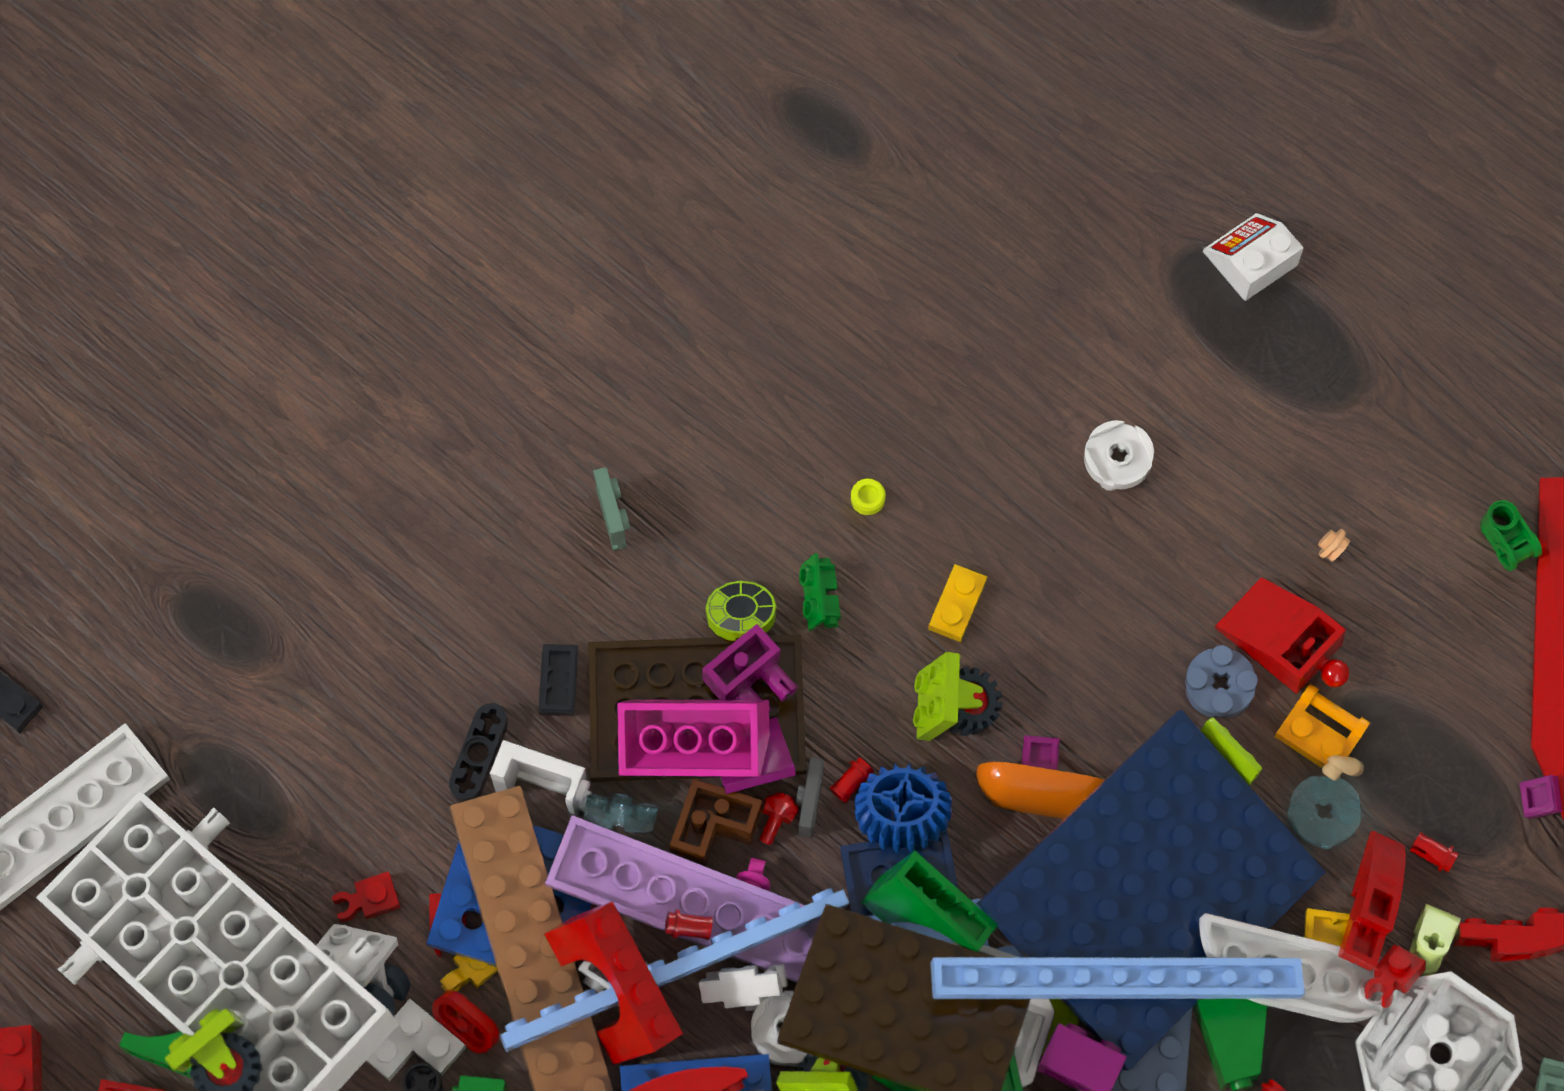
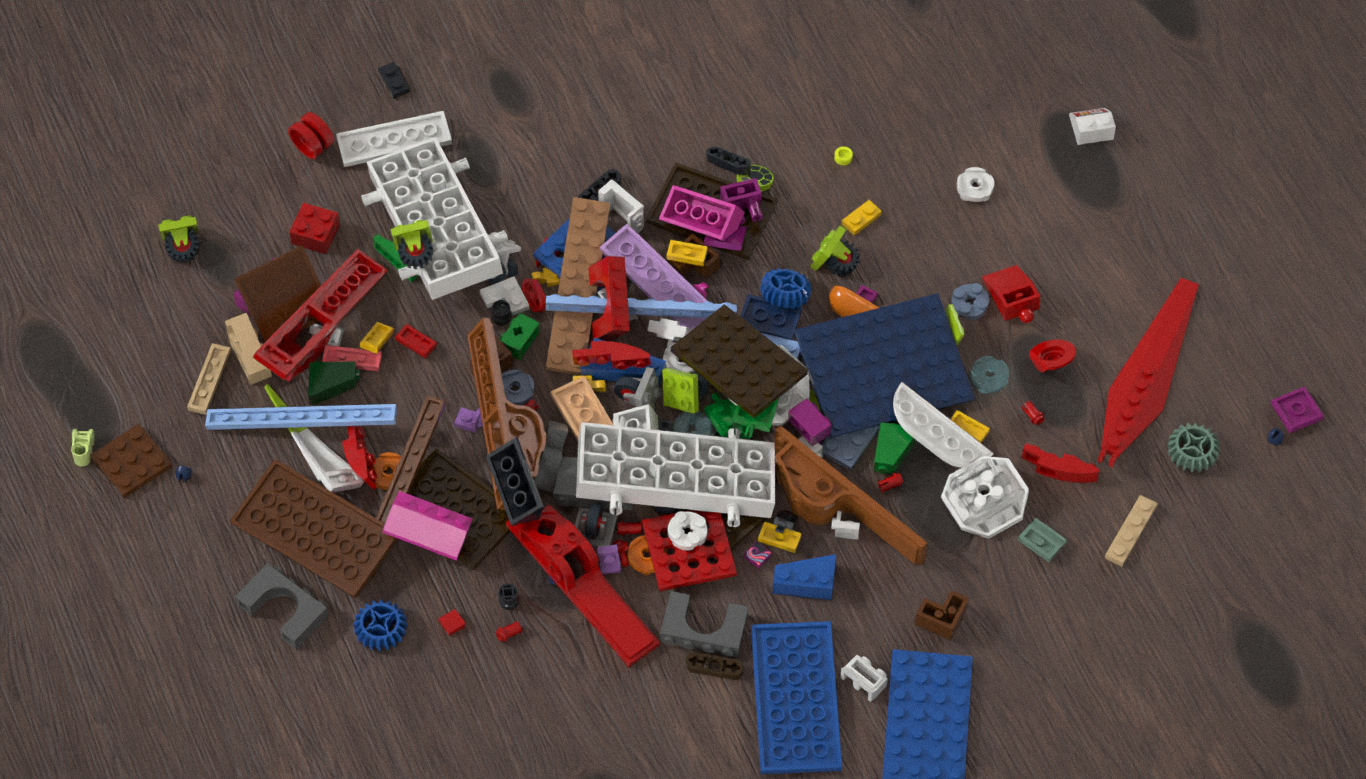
camera: 25 degrees right, 10 degrees down
(373, 896) = (518, 229): red plate -> none
(558, 680) = (653, 173): black plate -> none
(615, 519) = (716, 113): sand green plate -> none
(620, 812) = (651, 236): clear light blue plate -> none
(688, 925) = (656, 291): red pin -> none
(690, 608) = (728, 160): none -> black beam
(706, 825) = (687, 253): none -> yellow plate
(779, 809) = (727, 267): red plate -> none
(809, 796) = (744, 268): dark grey plate -> none
(816, 578) = (793, 191): green hinge -> none
(851, 780) = (763, 270): red pin -> none
(923, 896) = (771, 319): green arch -> none
(1117, 978) = (843, 385): light blue plate -> none
(1313, 737) = (1004, 344): light orange plate -> none
(1333, 544) = (1059, 263): light nougat plate -> none
(1340, 764) = (1012, 359): tan arm -> none
(1376, 901) = (988, 417): red slope -> none
(1394, 972) = (982, 449): red plate -> none
(1414, 727) = (1052, 354): none -> red hat
(1433, 937) = (1010, 446): yellowish green piece -> none
(1510, 542) = (1149, 296): green piece -> none
(1540, 797) = (1099, 410): magenta tile -> none

